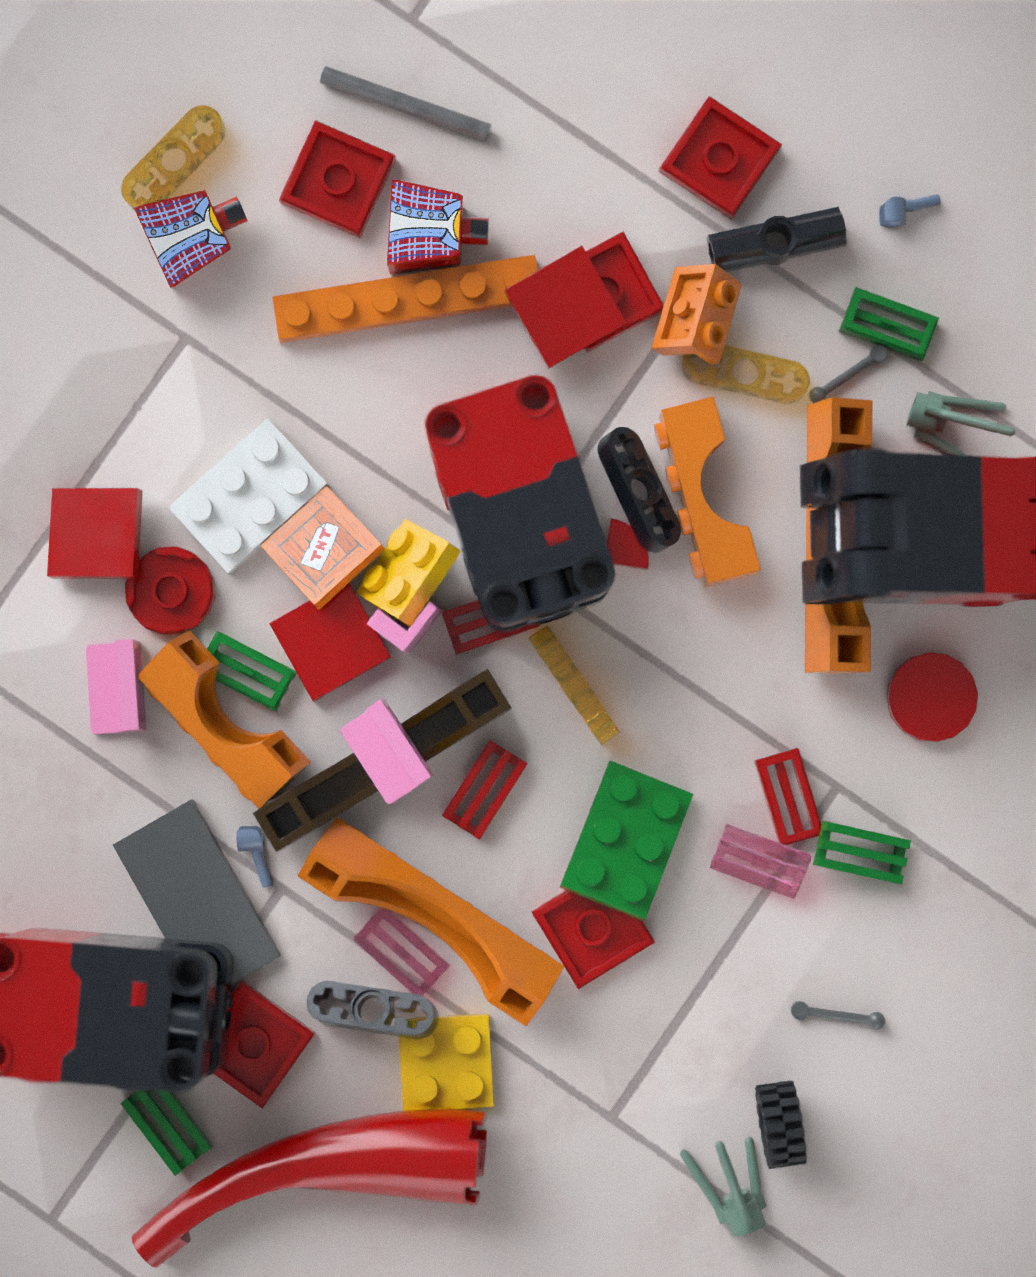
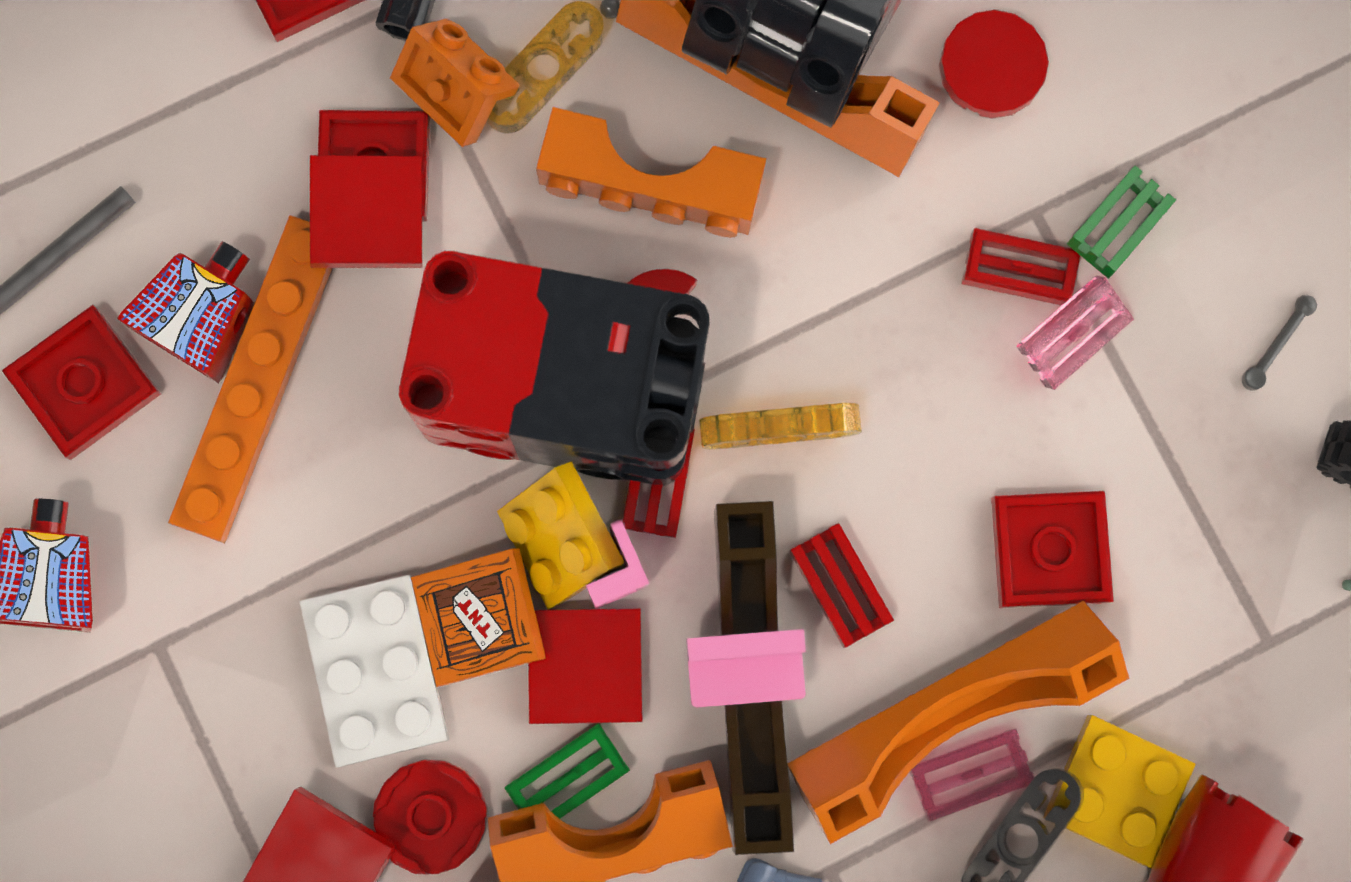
camera: 70 degrees left, 5 degrees down
(626, 840) = (979, 461): green plate -> none
(644, 471) = (570, 254): black beam -> none

